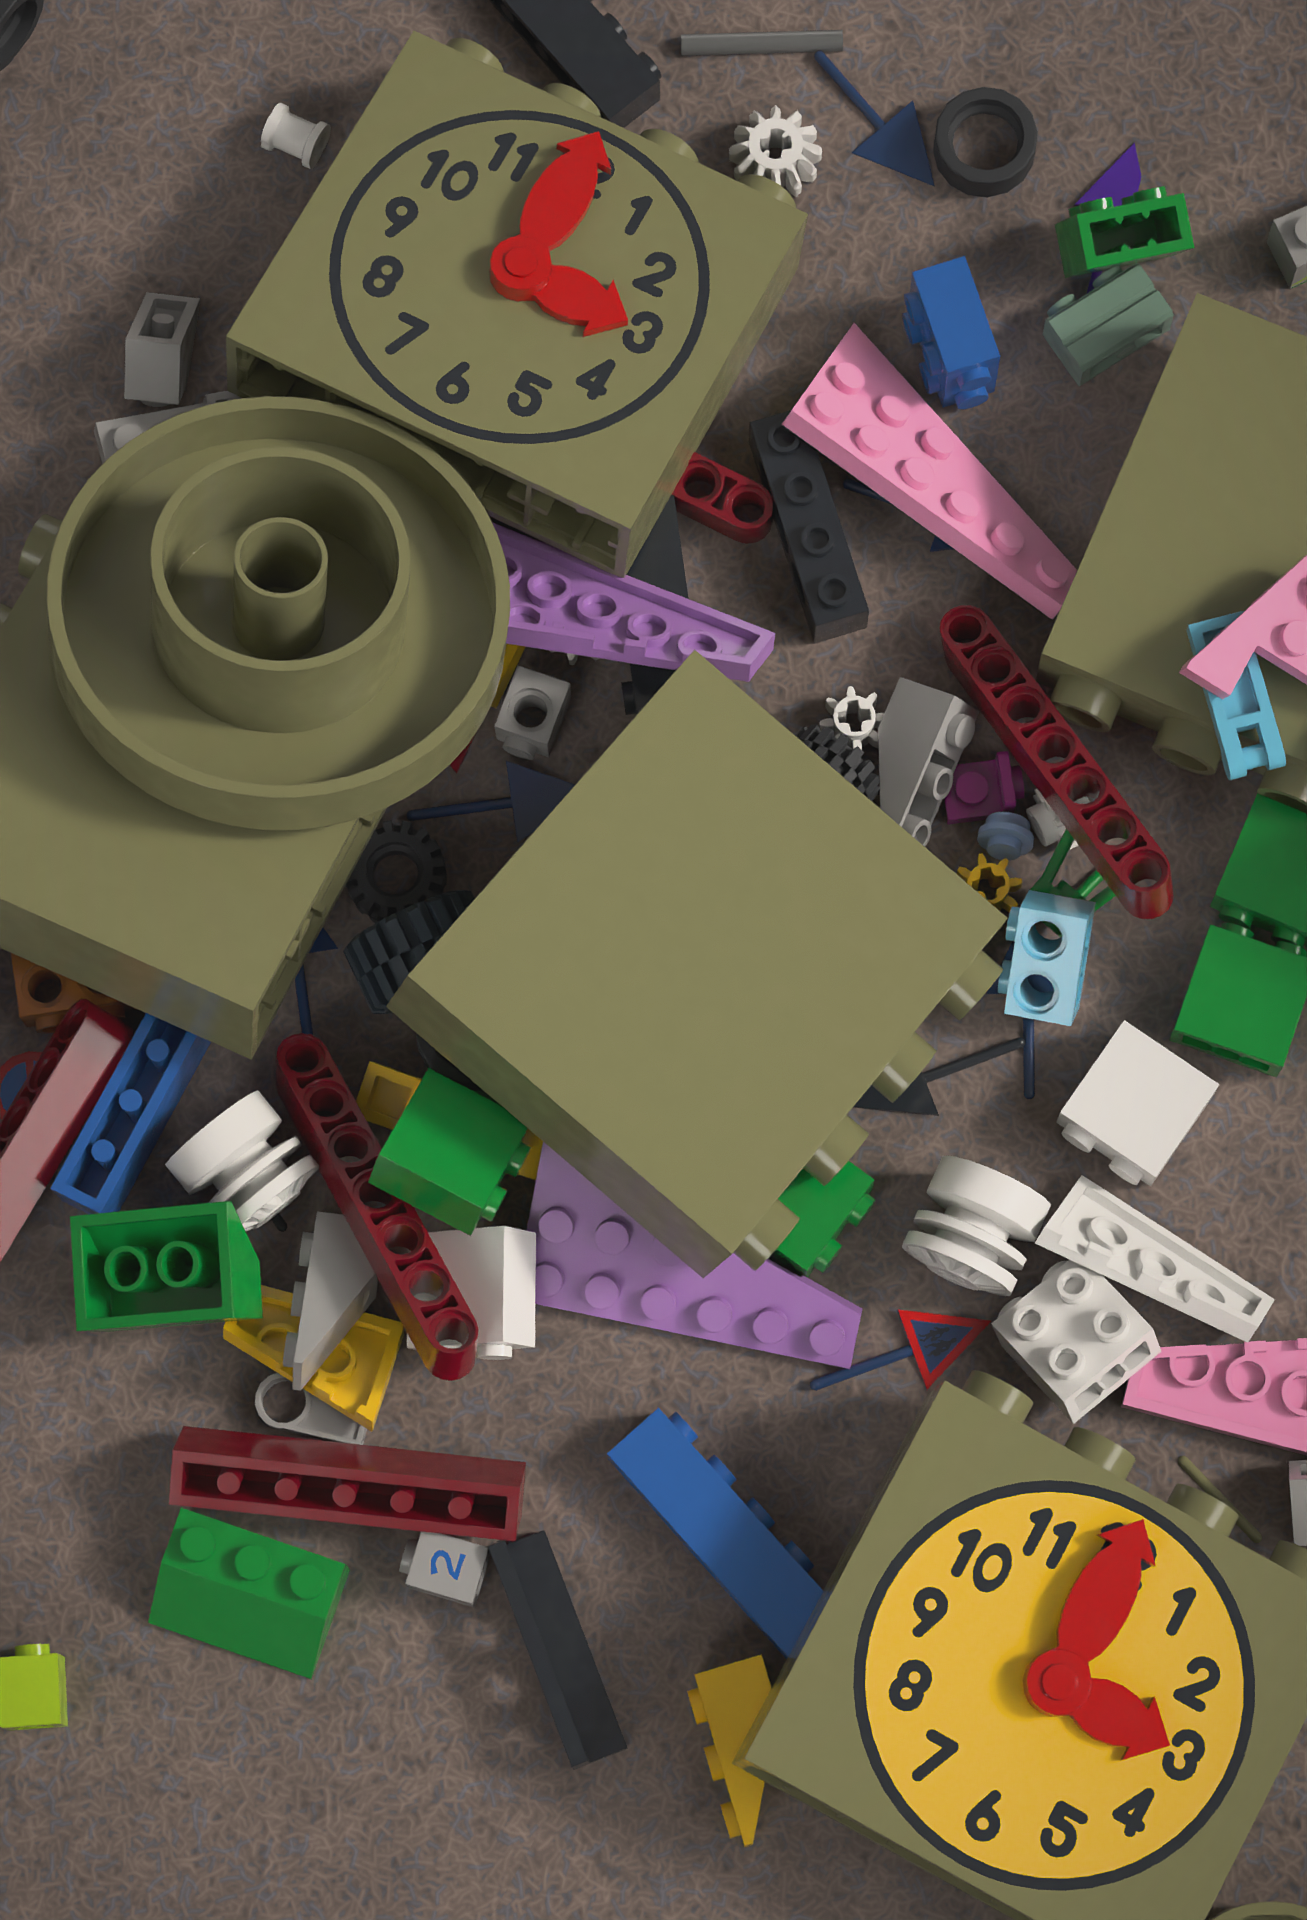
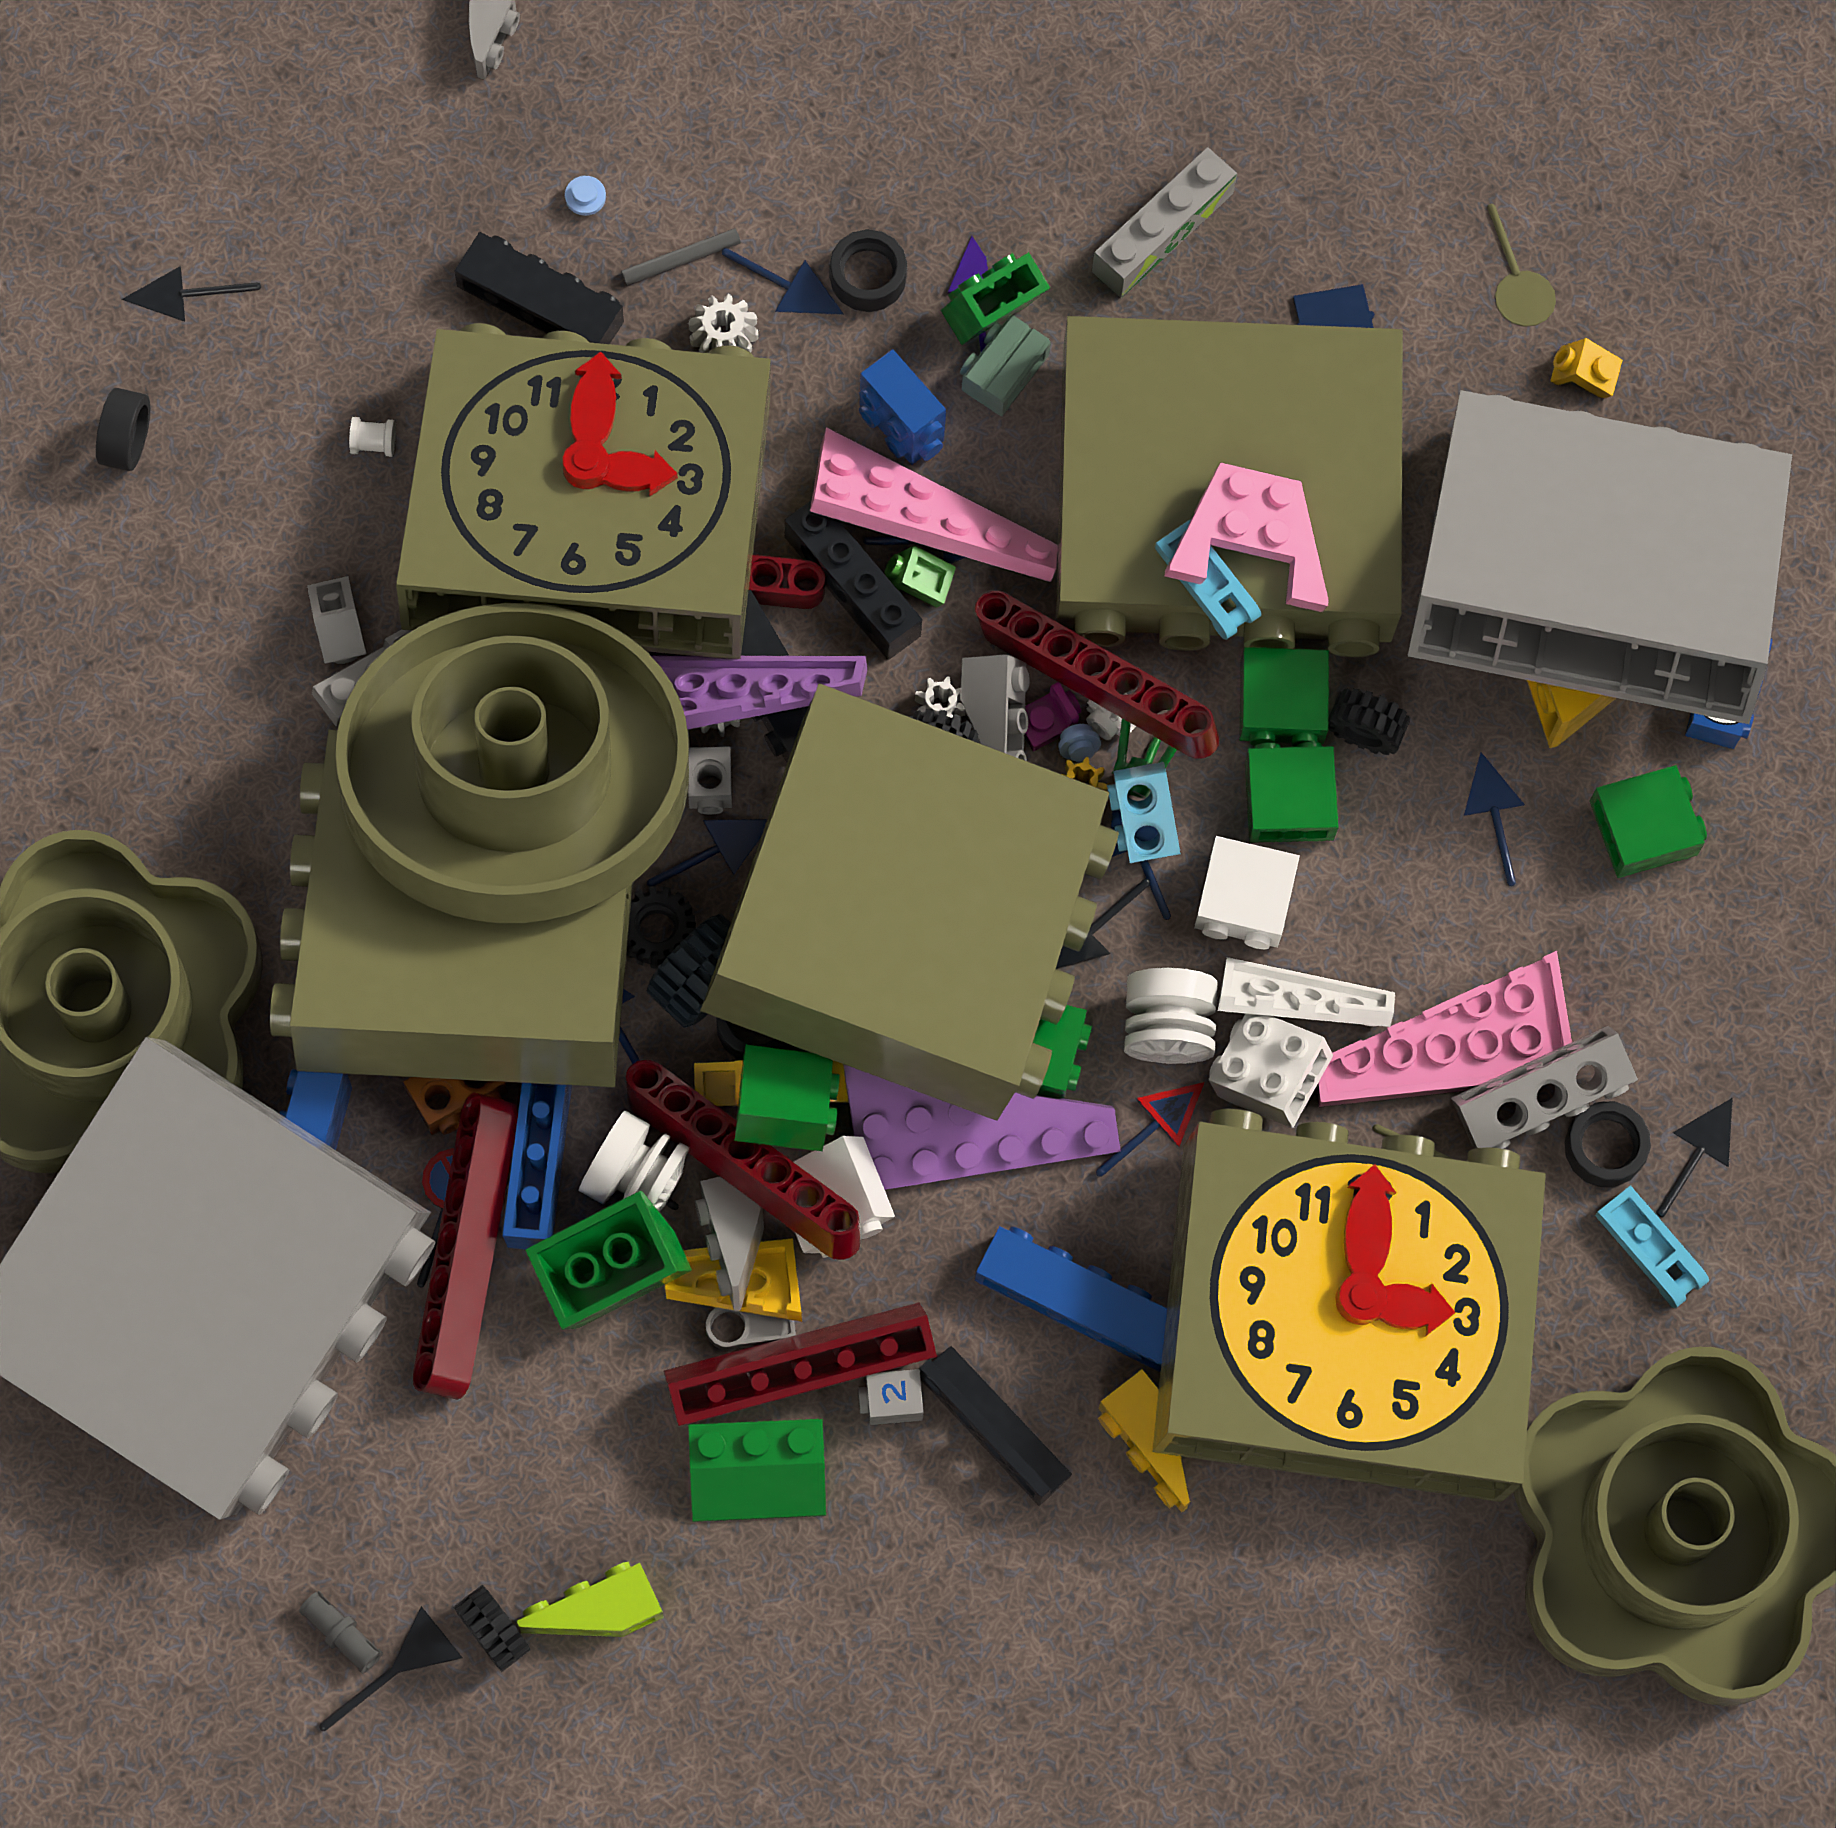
camera: 30 degrees left, 5 degrees down
(893, 552) = (920, 575): none -> bright green bracket

